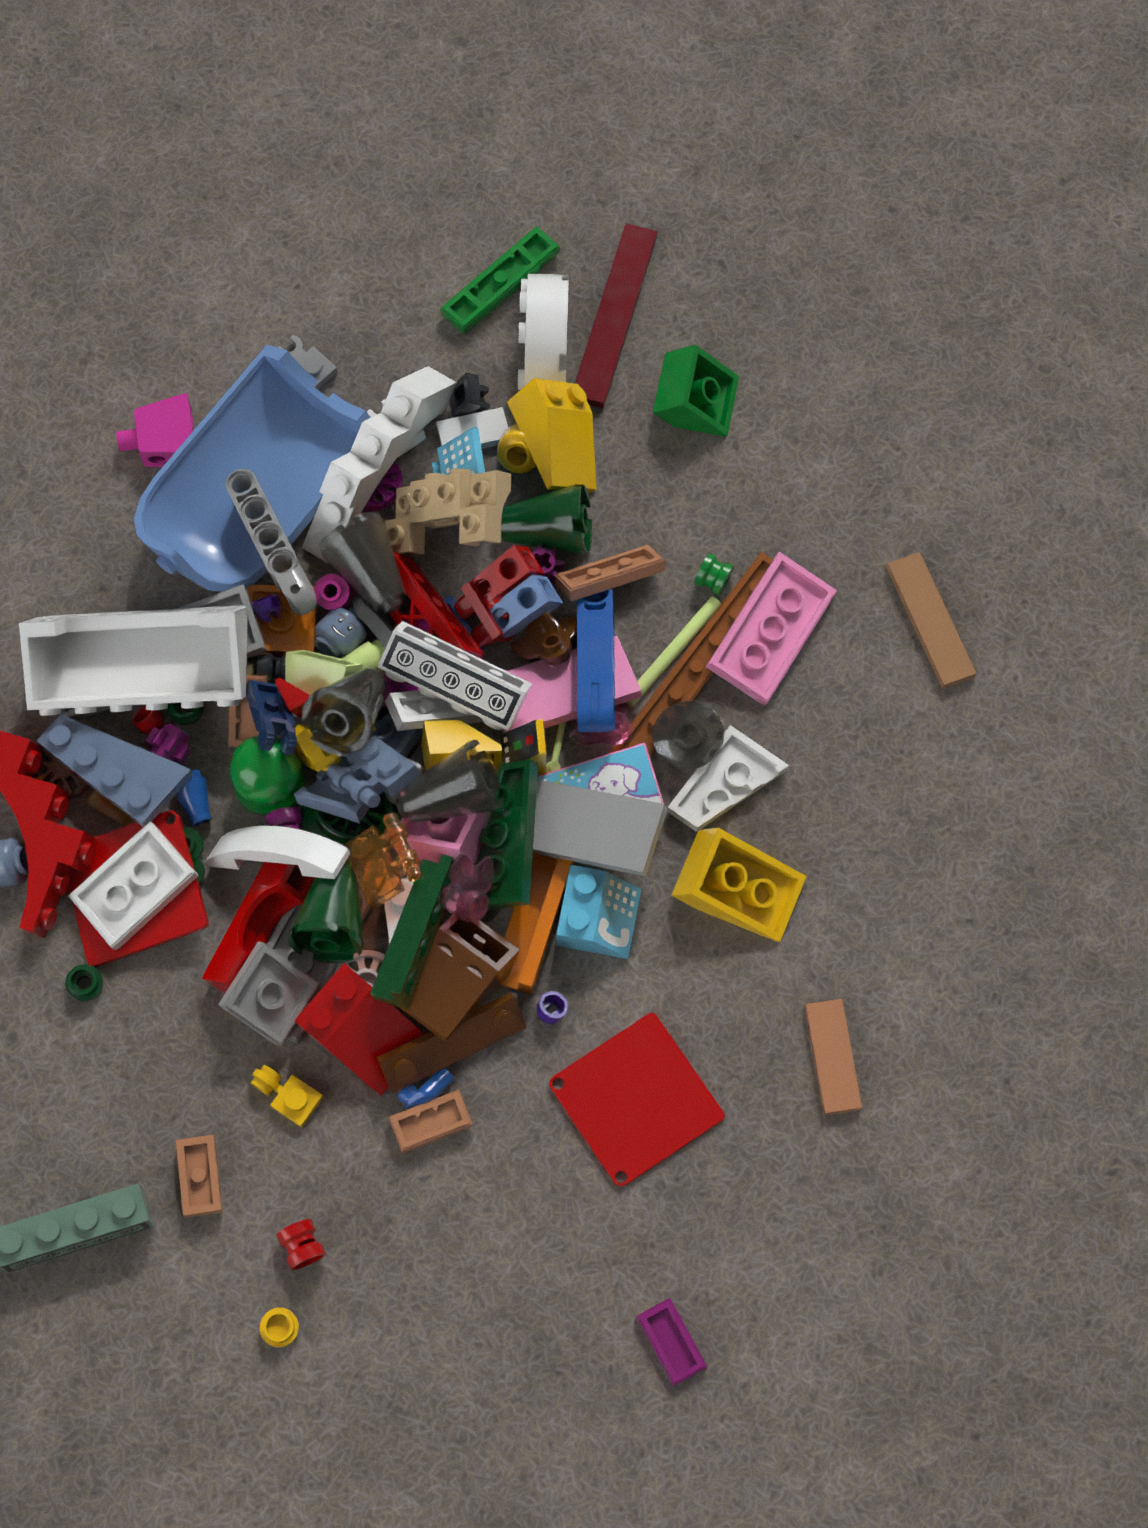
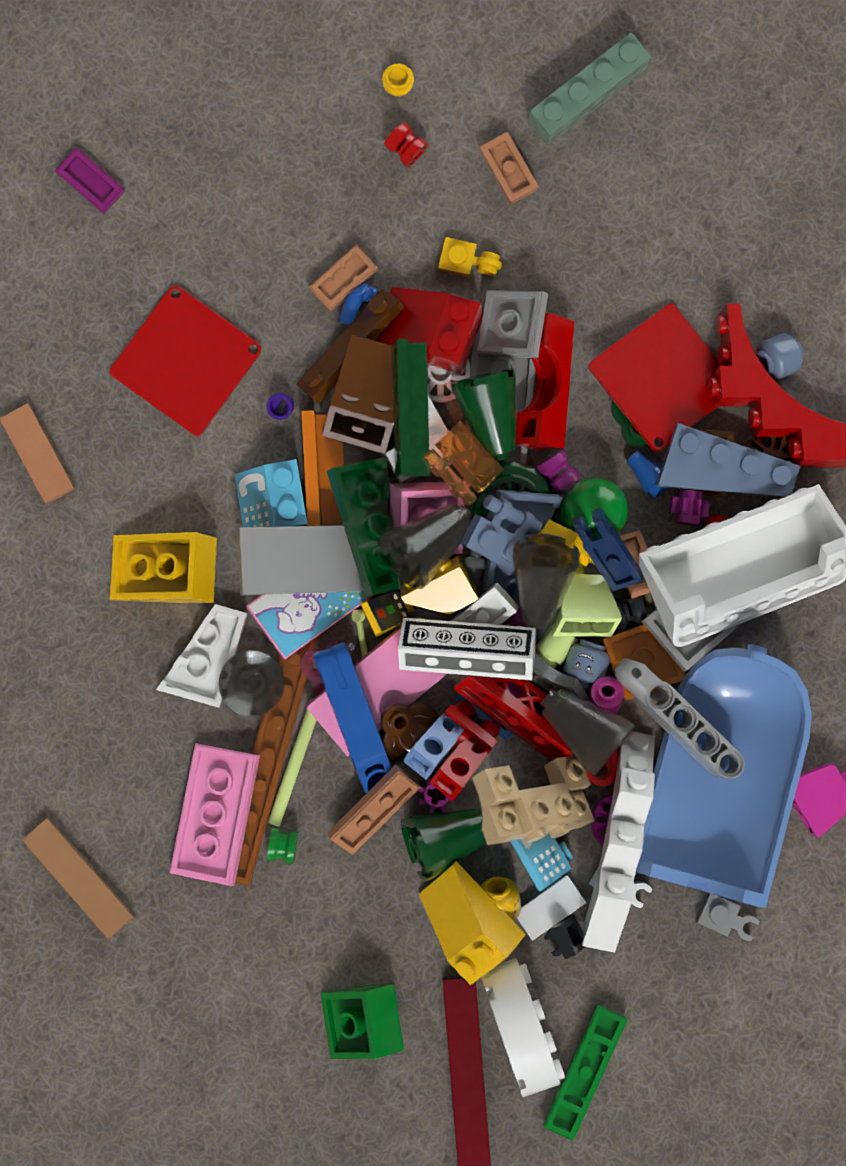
camera: 155 degrees right, 15 degrees up
(78, 973) = (669, 277): dark green plate -> none
(133, 886) = (663, 375): white tile -> none
(267, 605) = (659, 660): dark purple hinge -> none
(278, 844) = (554, 445): white slope -> none
(292, 696) = (595, 578): red slope -> none
(468, 888) = (381, 462): clear pink plate -> none

